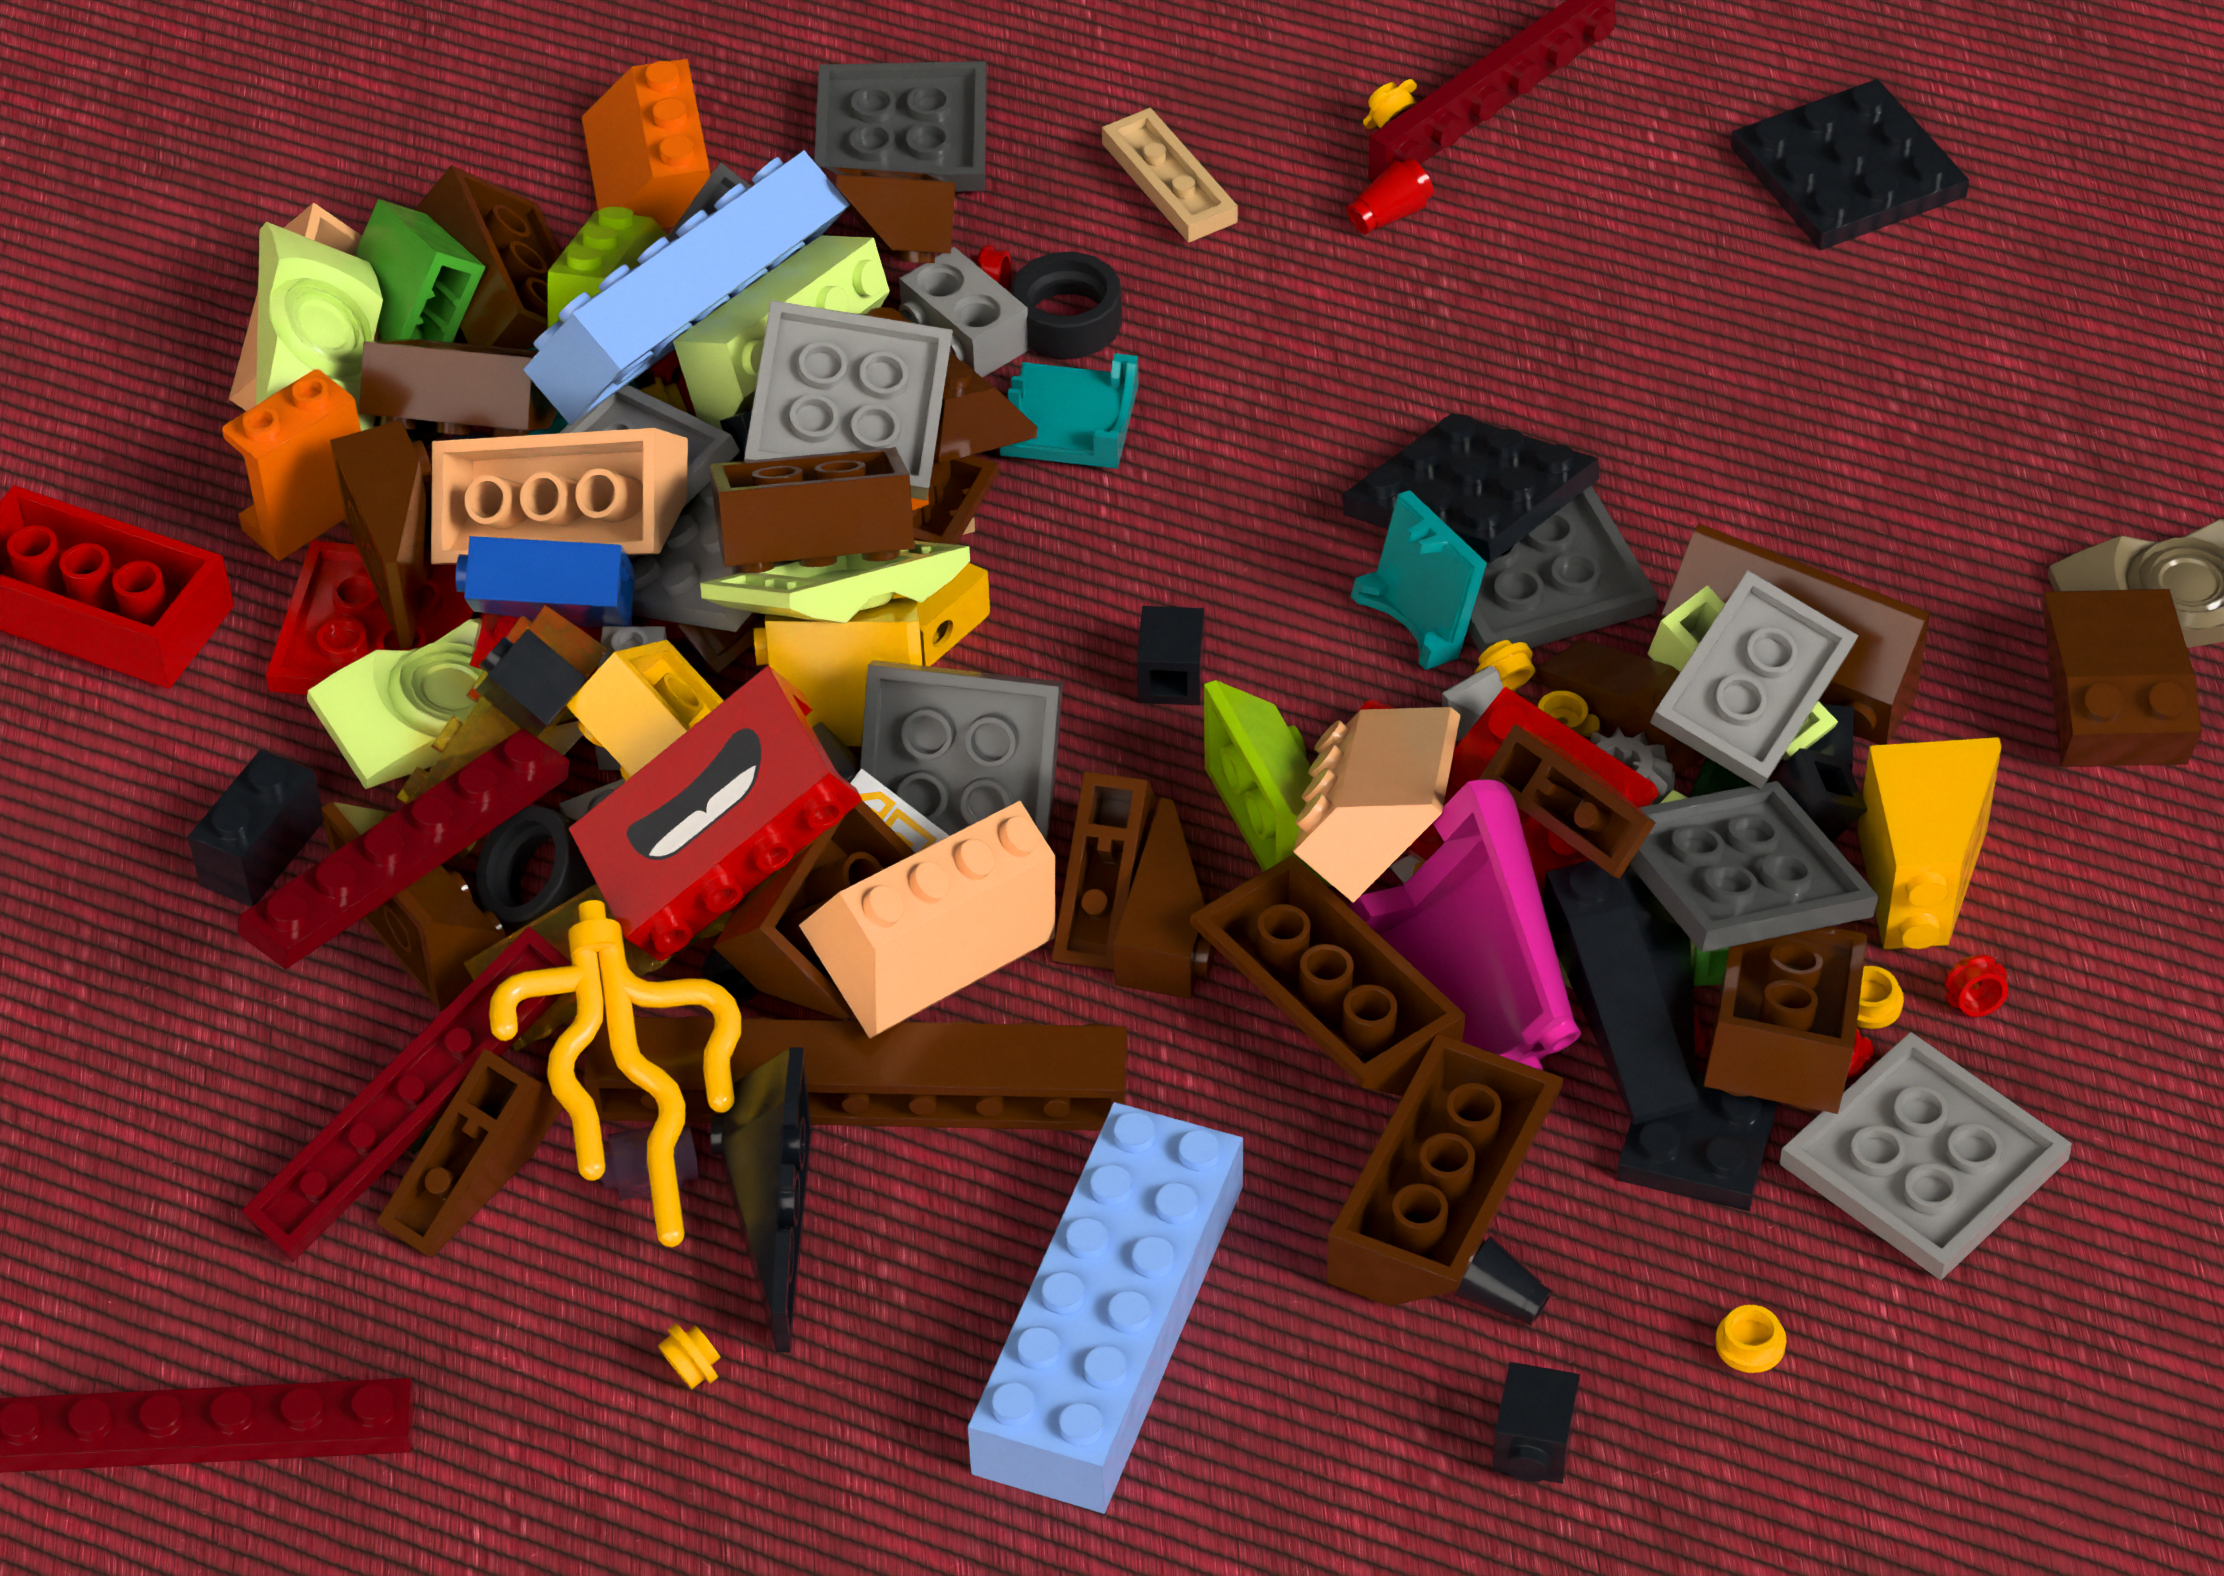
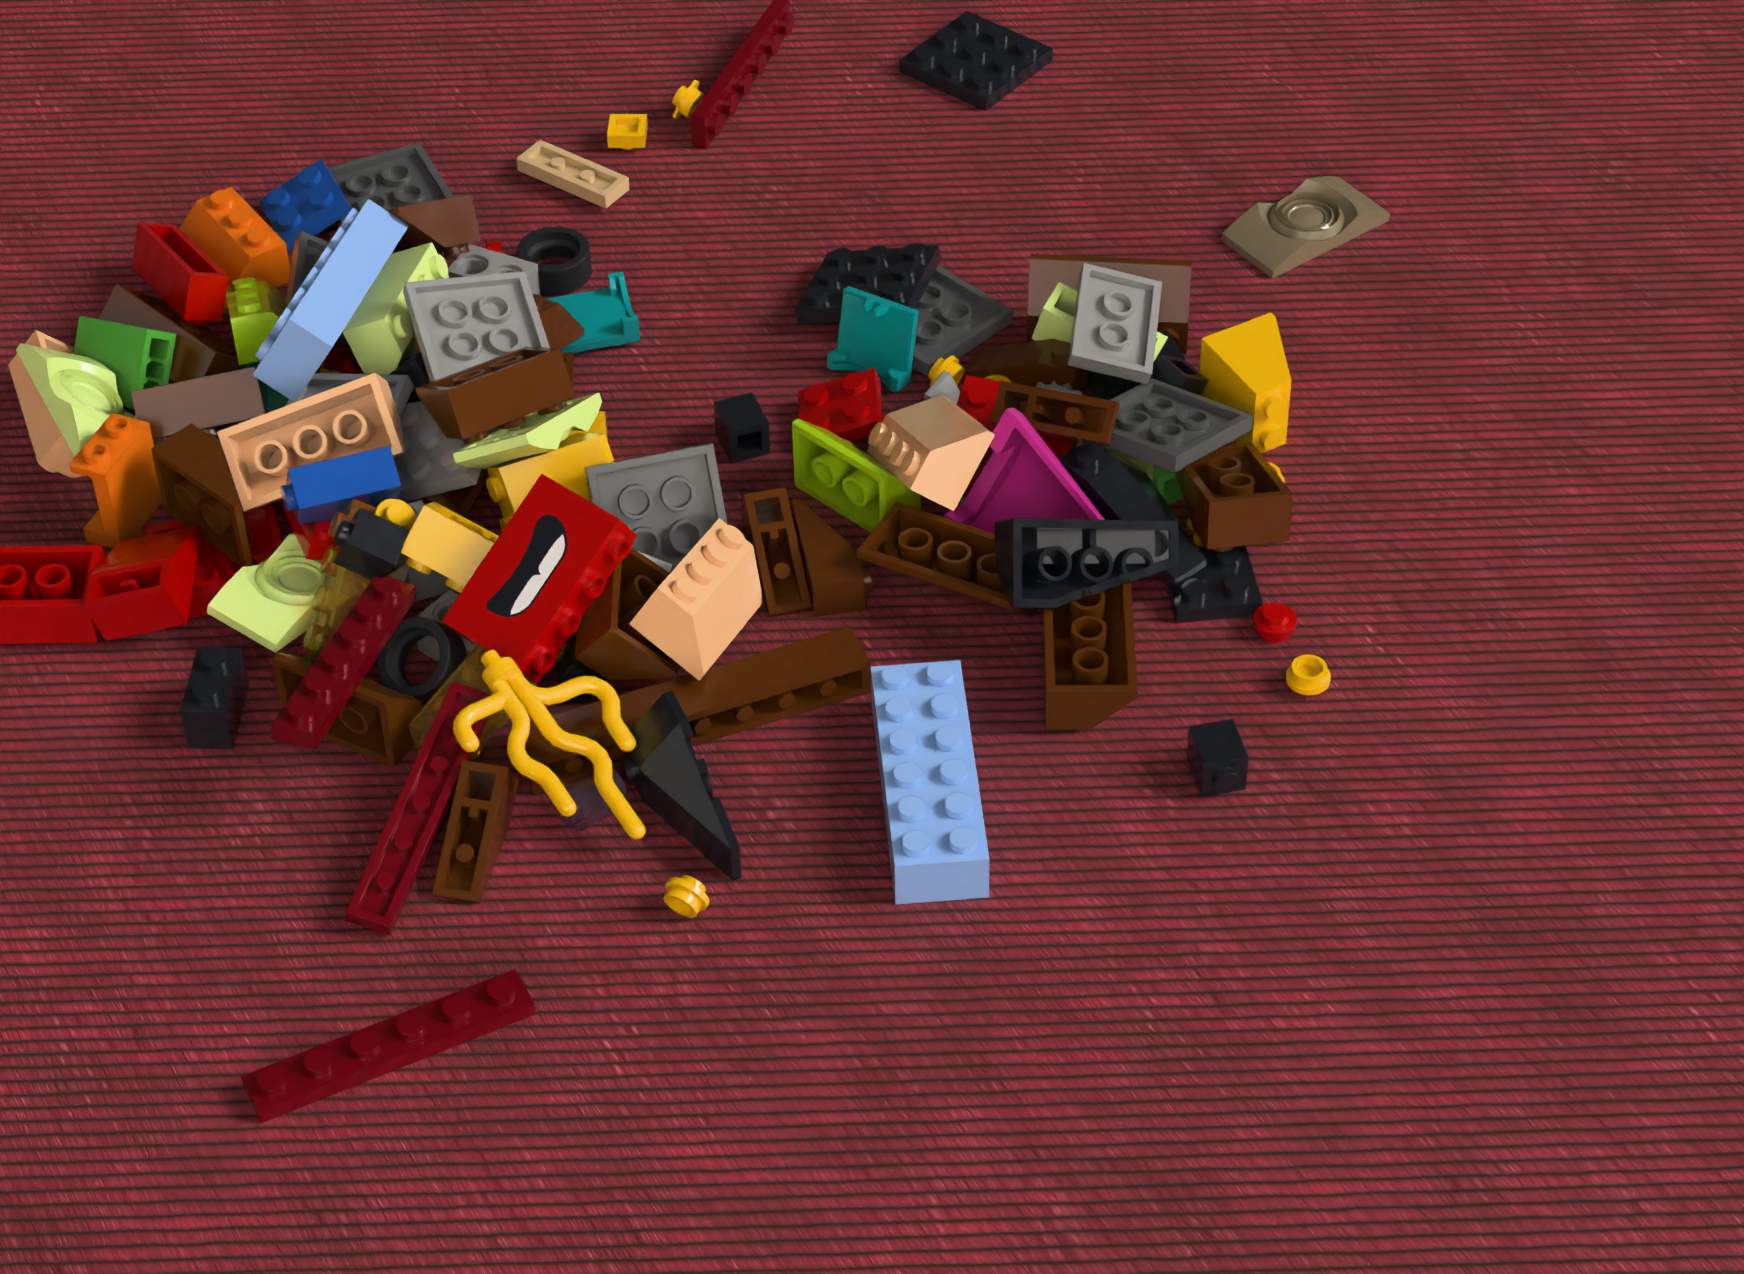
camera: 25 degrees left, 5 degrees down
(250, 627) = (144, 584): none -> red slope
(549, 170) = (180, 273): none -> red brick
(587, 646) = (397, 513): none -> yellow plate
(782, 113) = (305, 203): none -> blue plate
(1282, 129) = (627, 131): none -> yellow plate
(1326, 671) = (844, 405): none -> red plate
(1391, 196) = (719, 146): red cone -> none
(1468, 1040) = (1069, 559): none -> black wedge
(1503, 1284) = (1154, 695): black cone -> none
(1754, 1232) = (1274, 622): none -> red plate
(1926, 1155) = (1346, 550): light grey plate -> none
(1977, 985) = (1319, 455): red plate -> none
(2120, 678) = (1305, 275): reddish brown slope -> none

